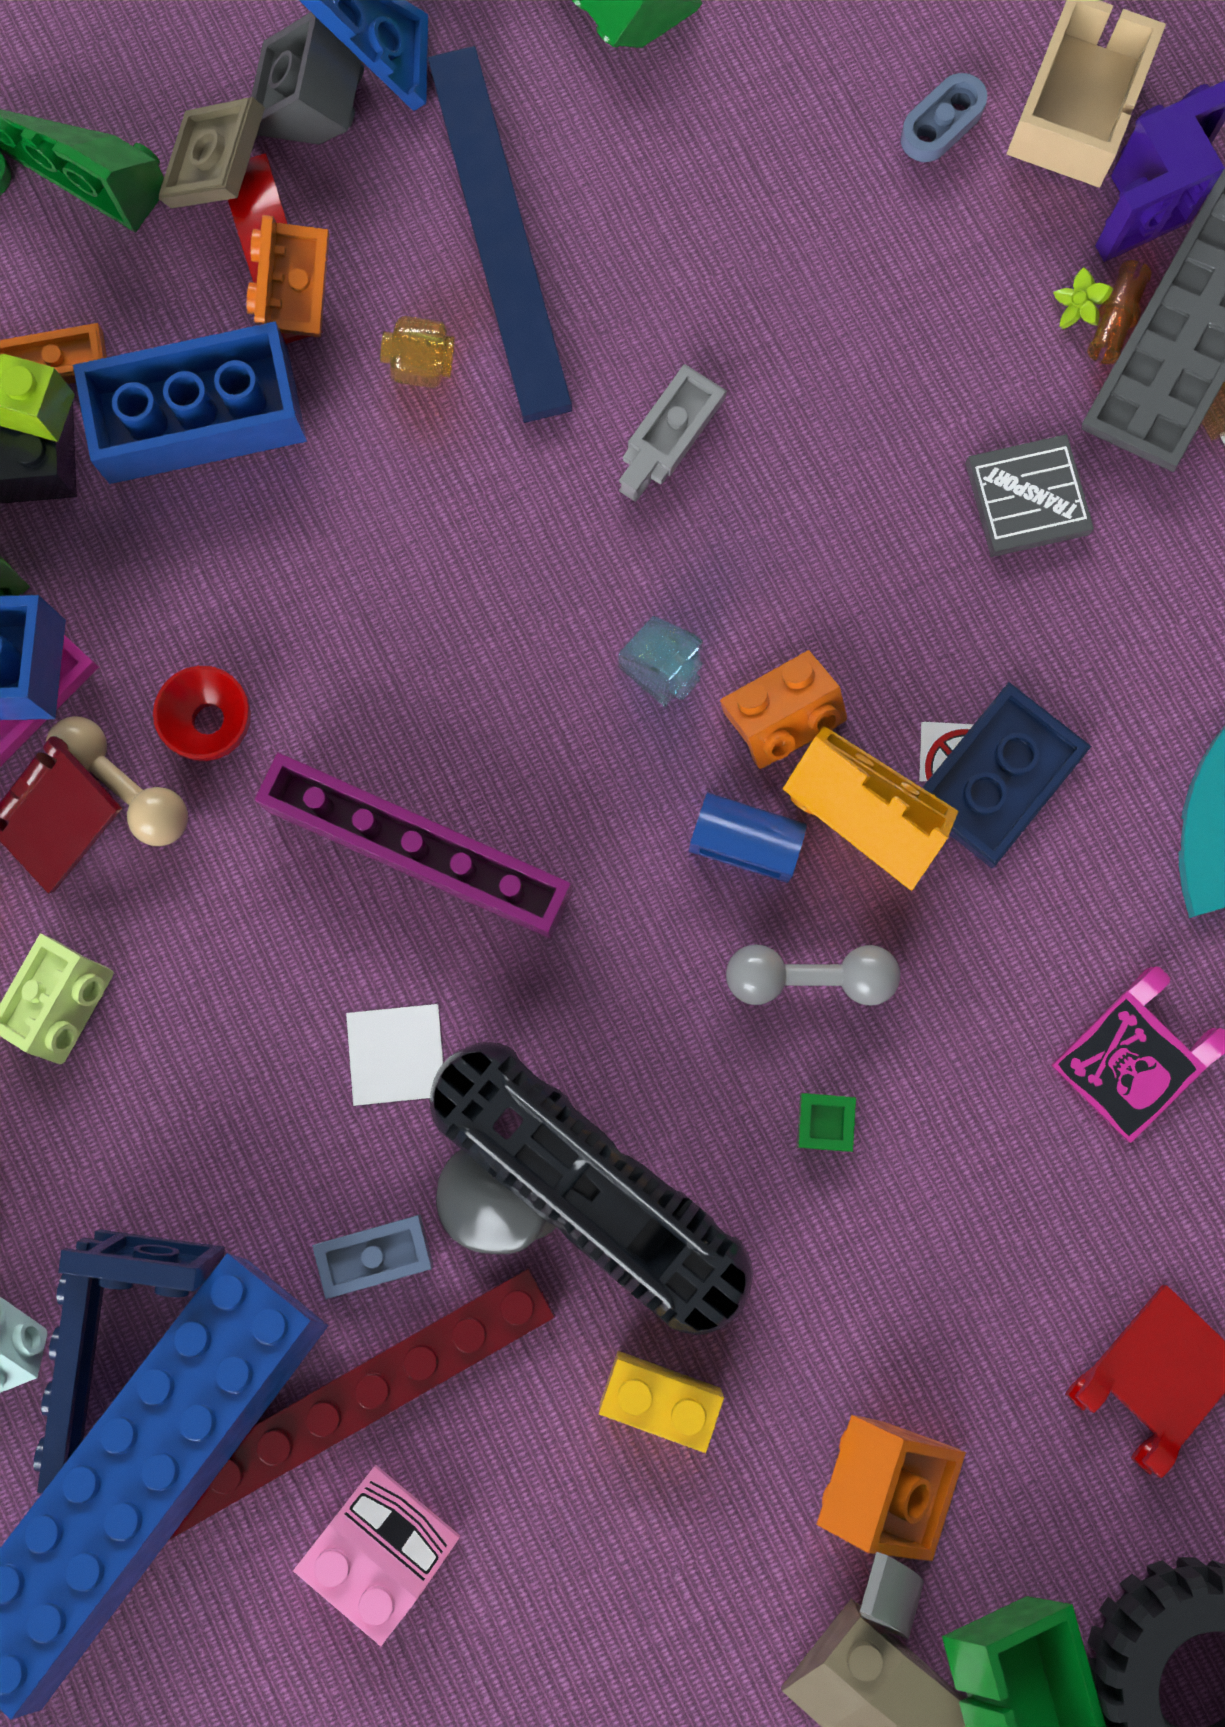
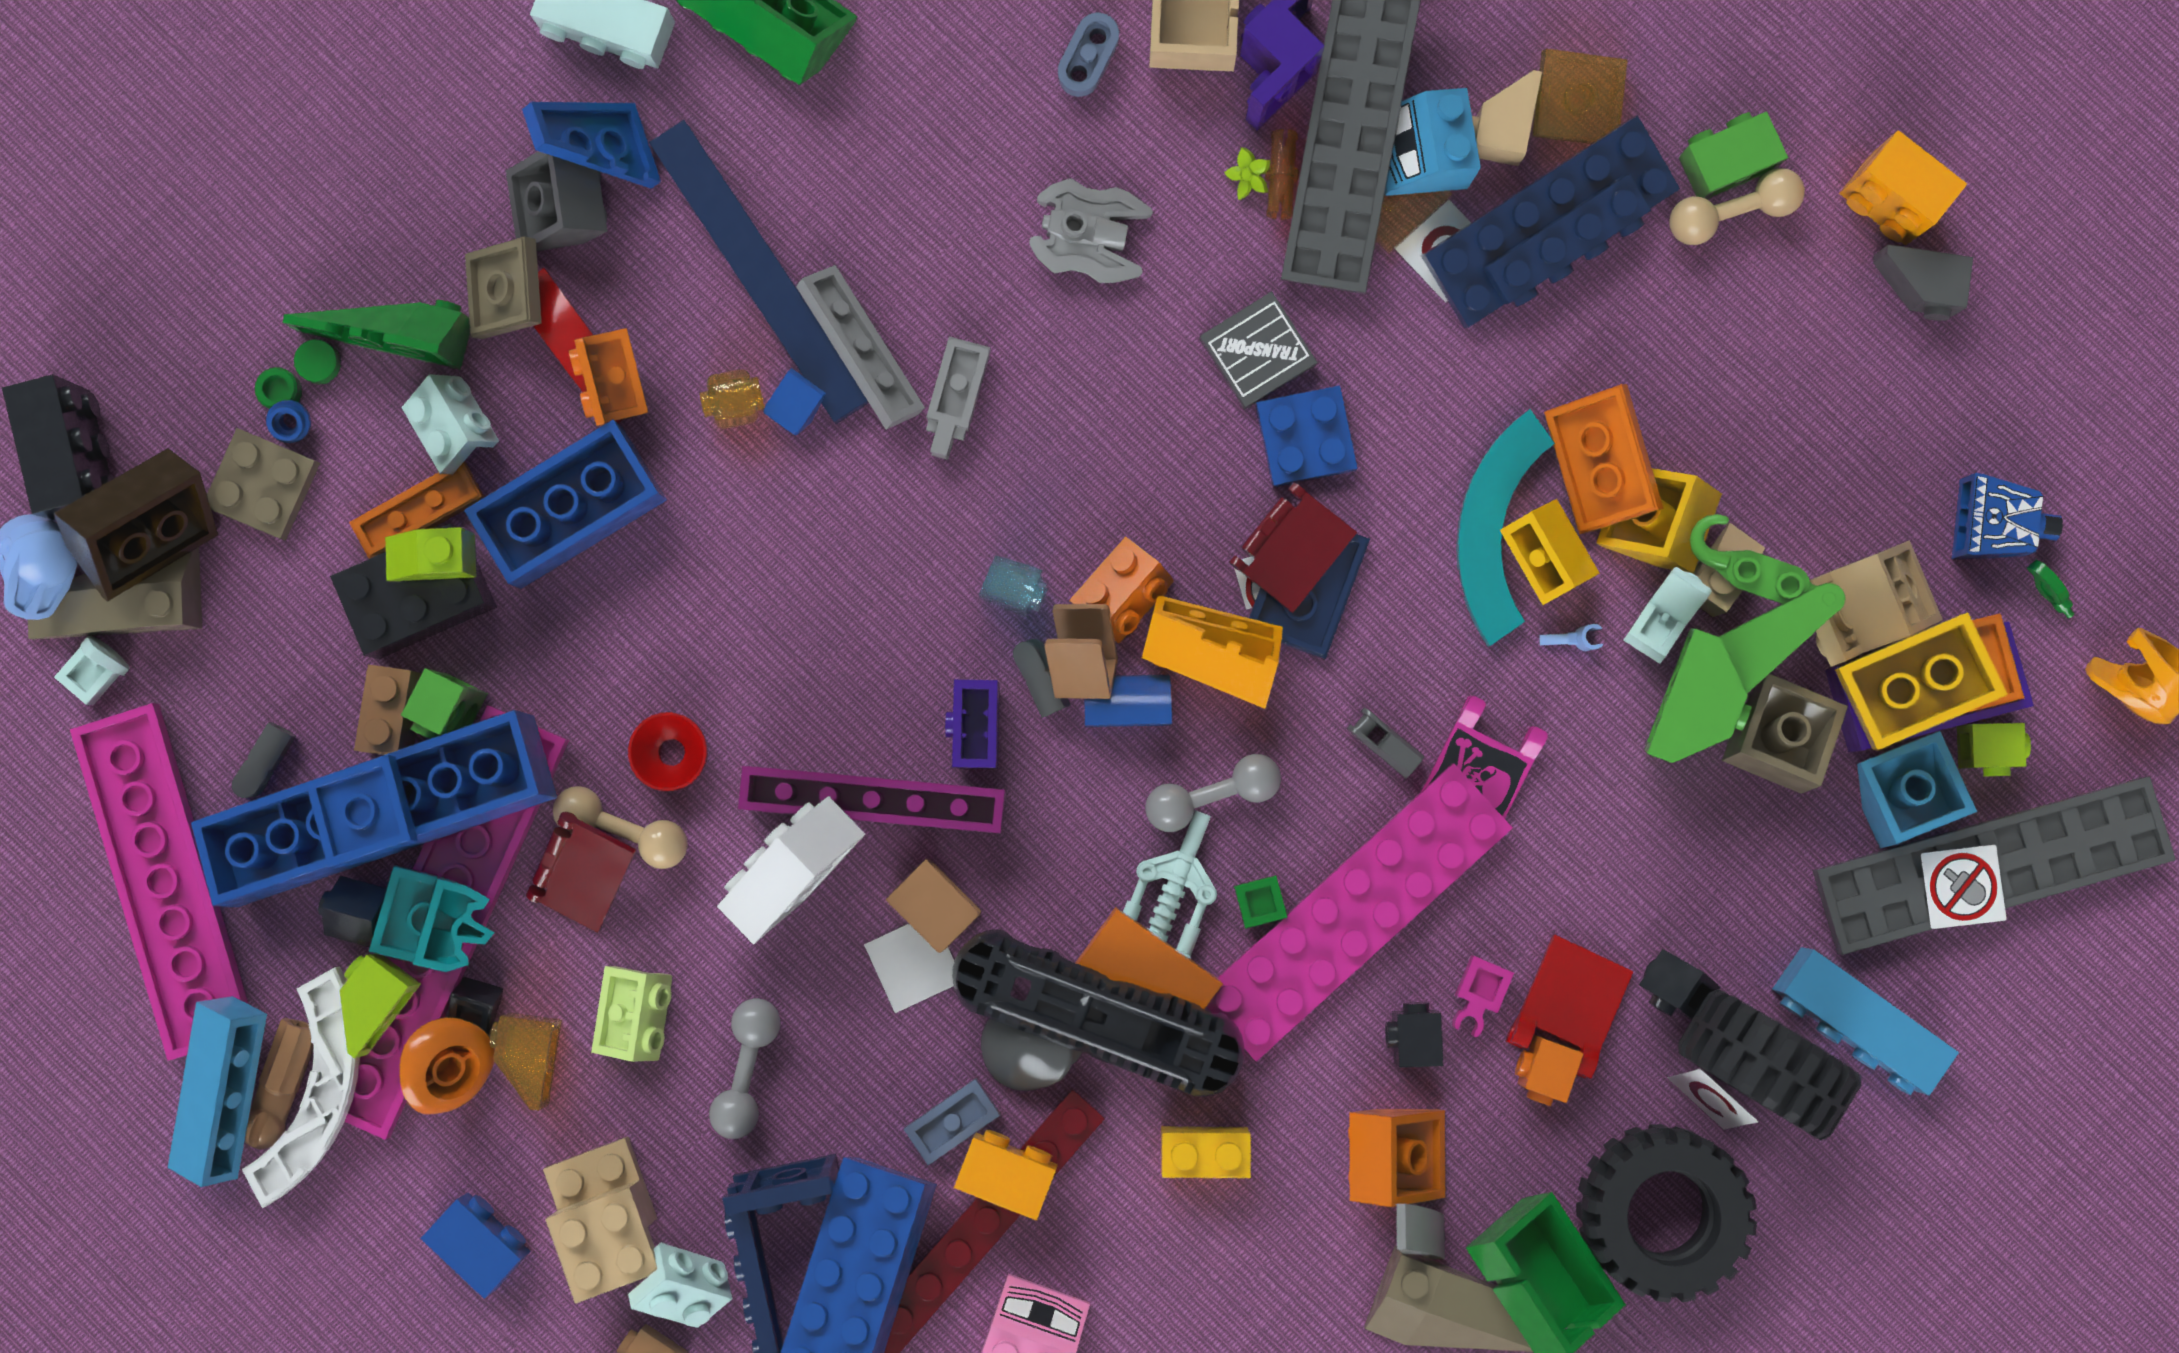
camera: 20 degrees left, 5 degrees up
(98, 274) = (448, 421): none -> light aqua bracket
(124, 1152) = (735, 1110): none -> light grey piece
(287, 886) = (789, 868): none -> white brick
(412, 1343) = (1006, 1174): none -> light orange brick
(441, 993) = (934, 905): none -> medium nougat piece
(486, 379) = (794, 402): none -> blue slope
(562, 799) = (974, 724): none -> dark purple brick
(581, 344) = (860, 347): none -> light grey plate
(656, 775) = (1034, 667): none -> dark grey bar
(659, 1134) = (1137, 956): none -> orange tile
(715, 756) = (1084, 654): none -> medium nougat piece
(745, 1054) = (1180, 870): none -> light aqua bar
(879, 303) = (1085, 230): none -> light grey piece
(937, 1173) = (1357, 909): none -> dark pink plate
(961, 1349) = (1415, 1036): none -> black brick
(999, 726) = (1293, 548): none -> dark red piece
(1041, 994) = (1391, 747): none -> dark grey bar
(1053, 608) = (1306, 436): none -> blue plate
(1060, 1319) = (1483, 988): none -> dark pink plate
(1110, 1449) = (1548, 1070): none -> orange brick

